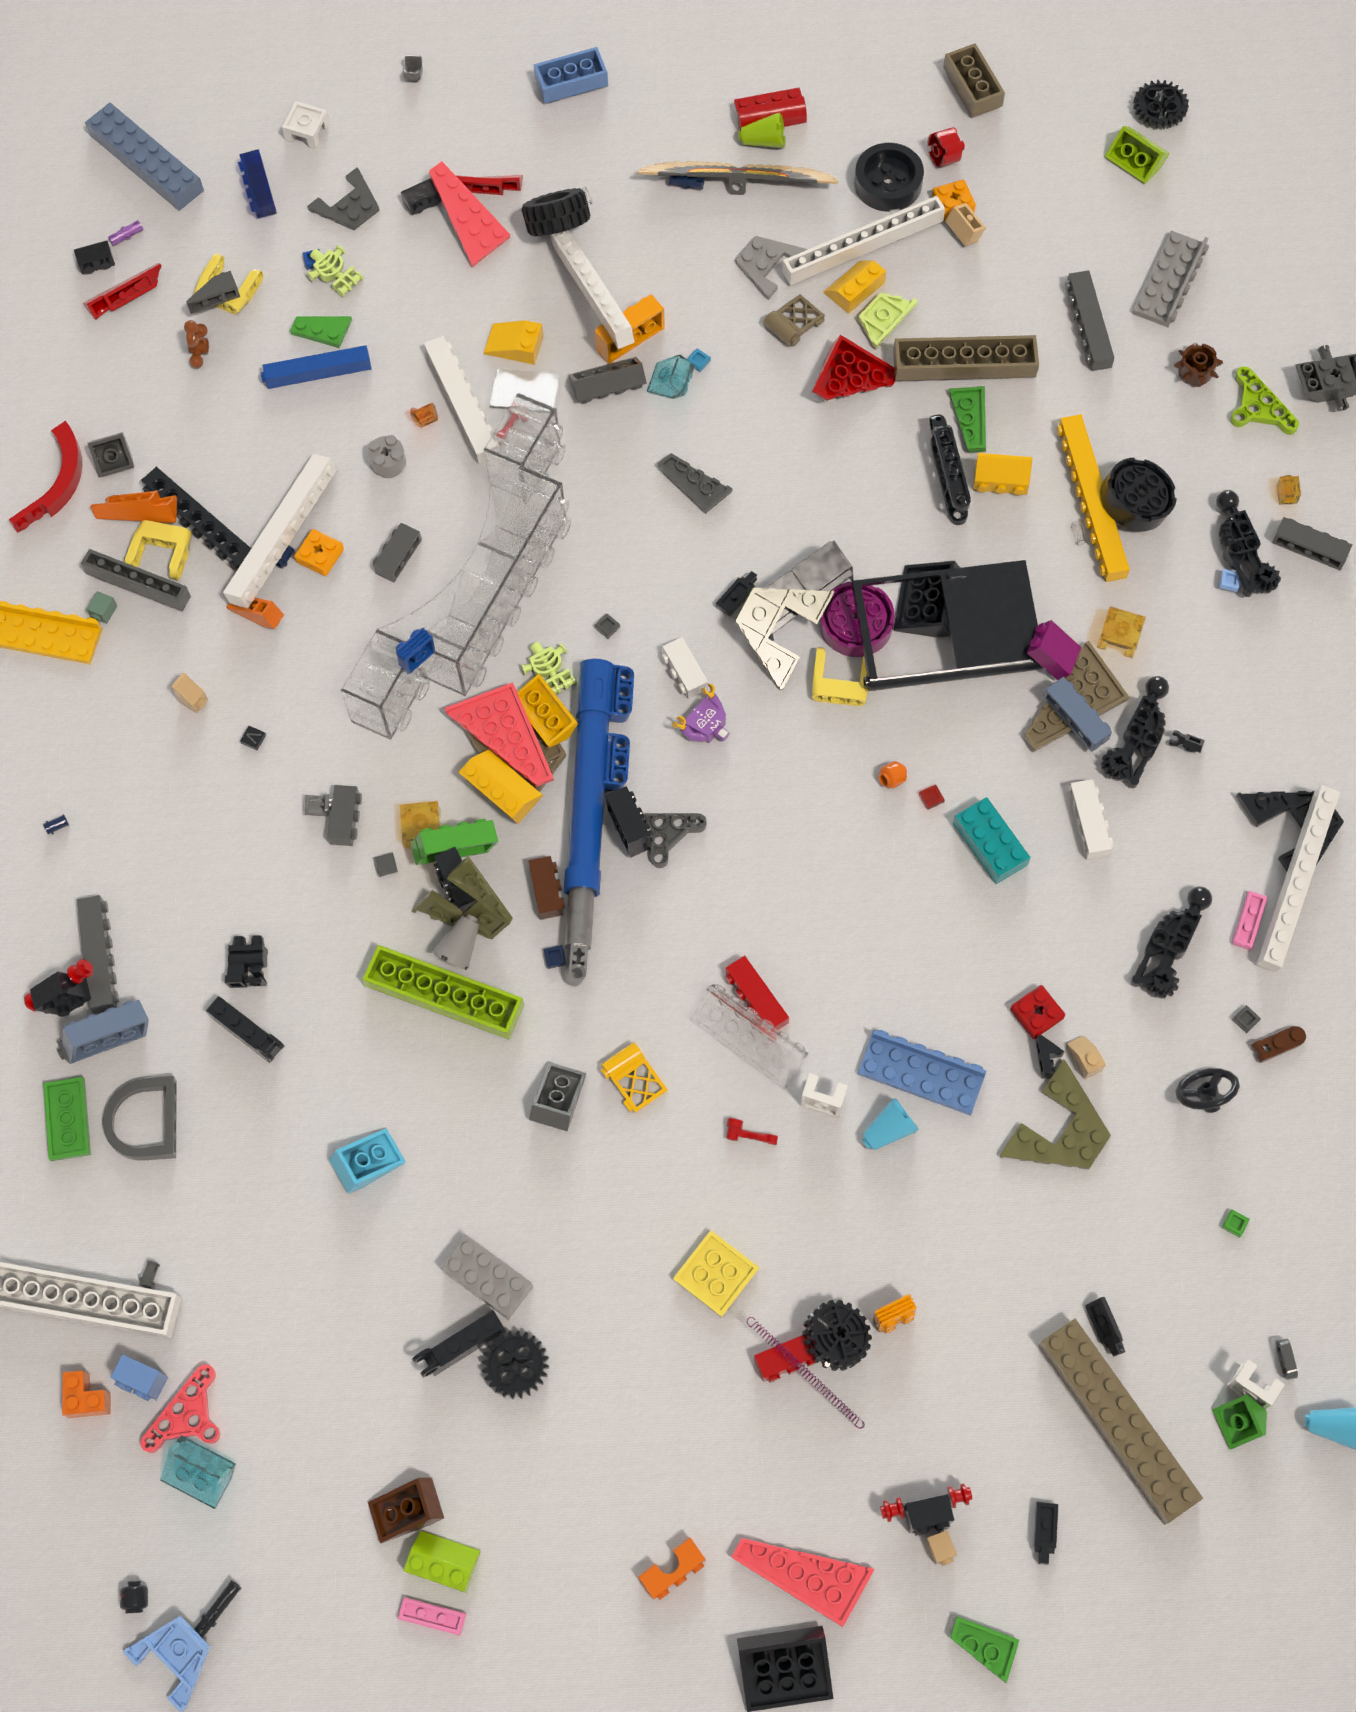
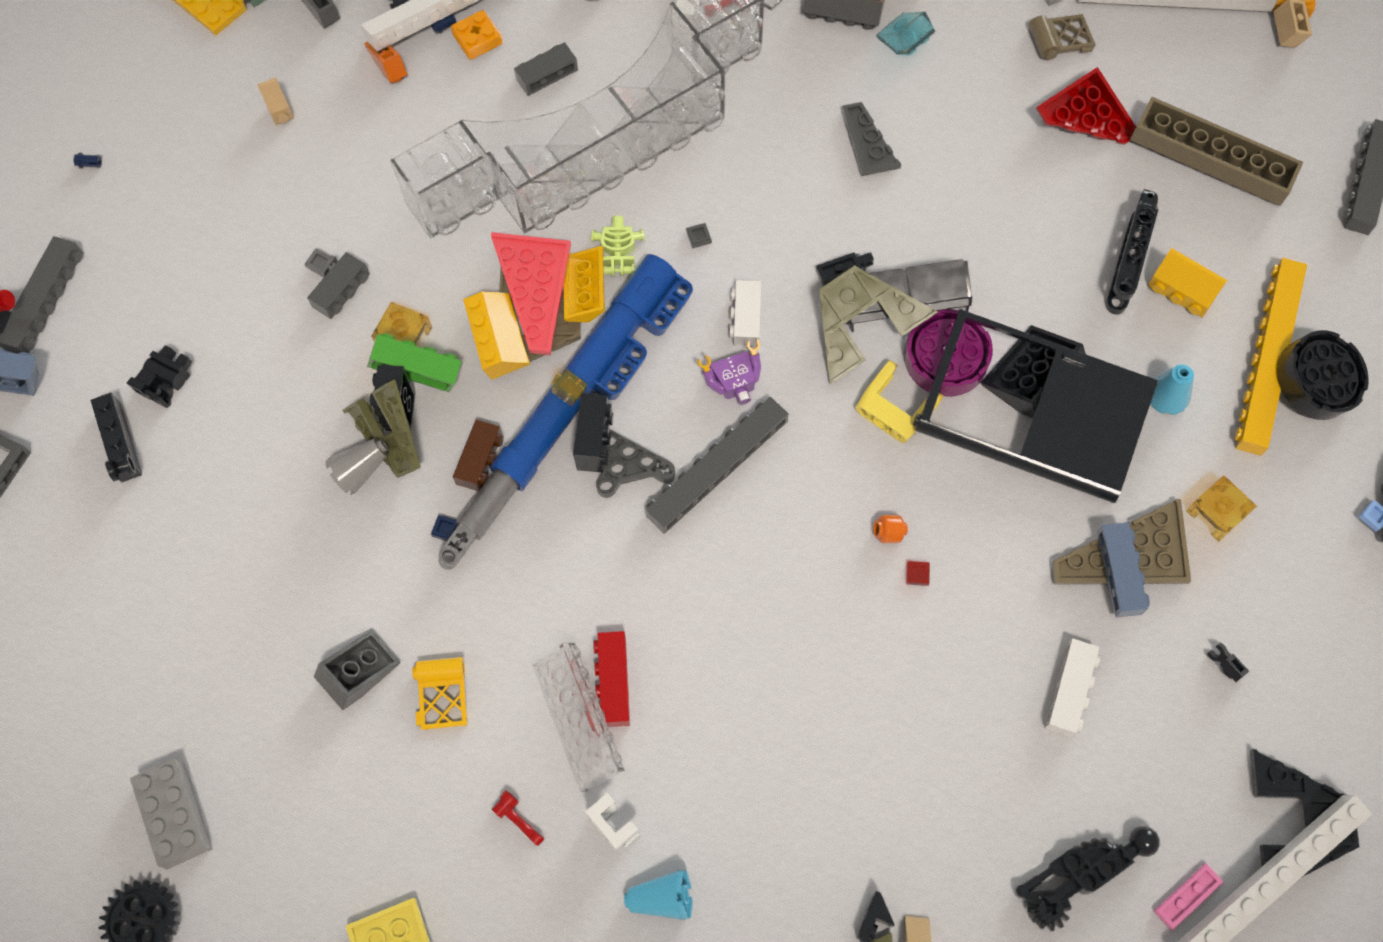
camera: 30 degrees right, 0 degrees up
(253, 737) = (308, 172): black tile -> none
(366, 1160) = (141, 628): medium azure slope -> none
(386, 864) = (347, 352): dark grey tile -> none
(415, 650) = (477, 155): blue brick -> none
(443, 992) = (316, 505): lime brick -> none
(460, 1344) = (100, 867): black hinge -> none
(591, 795) = (568, 387): none -> clear yellow brick
(699, 359) = (944, 29): dark azure tile -> none
(734, 797) = (716, 465): none -> dark grey brick
(856, 284) = (1145, 31): yellow slope -> none
(884, 316) = (1156, 73): yellowish green wing -> none
(922, 1072) = (733, 858): medium blue bracket -> none
(970, 411) = (1188, 212): bright green wing -> none
(991, 840) = (952, 653): teal brick -> none
(1035, 1023) = (883, 876): red brick -> none
(1039, 560) = (1173, 390): none -> medium azure cone
(1054, 649) = (1136, 489): magenta brick -> none
(1078, 531) = (1236, 377): clear pin -> none
(1150, 728) = (1195, 627): black arm -> none

